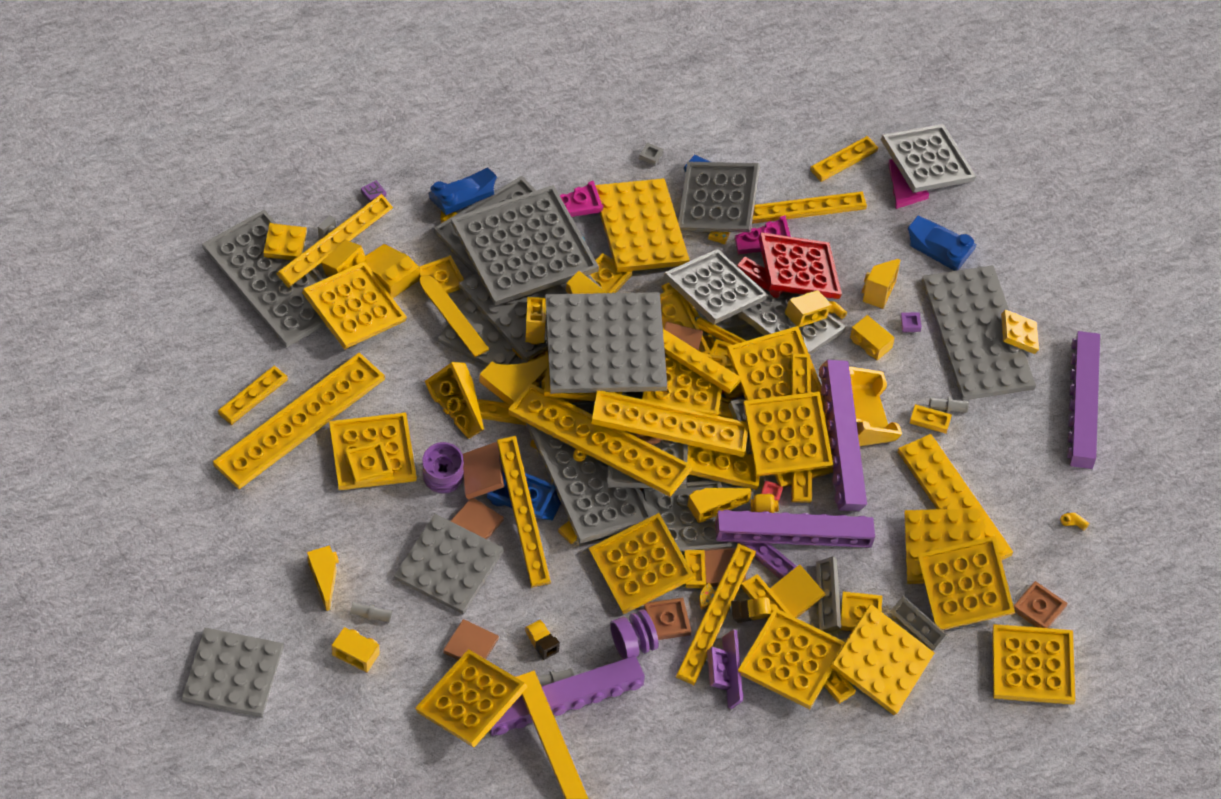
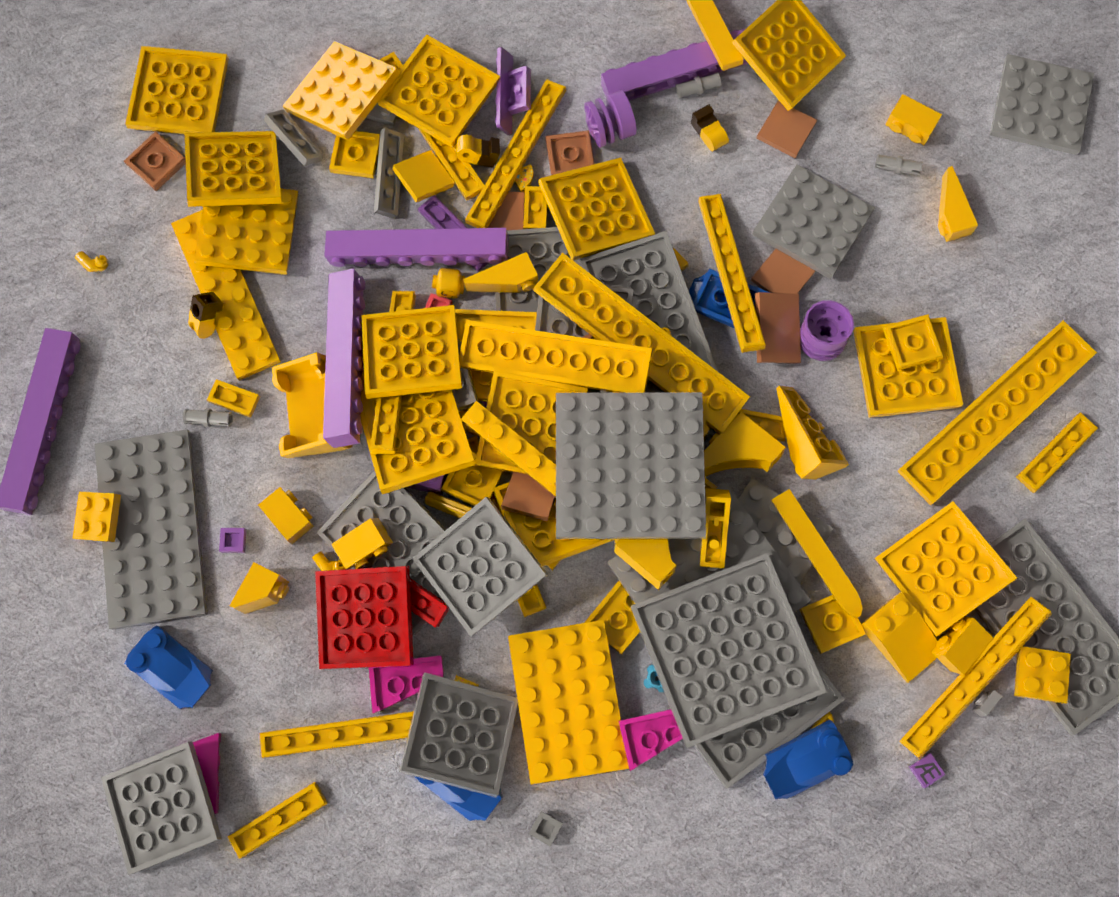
camera: 170 degrees left, 20 degrees up
(964, 472) = (203, 313): none -> dark brown leg

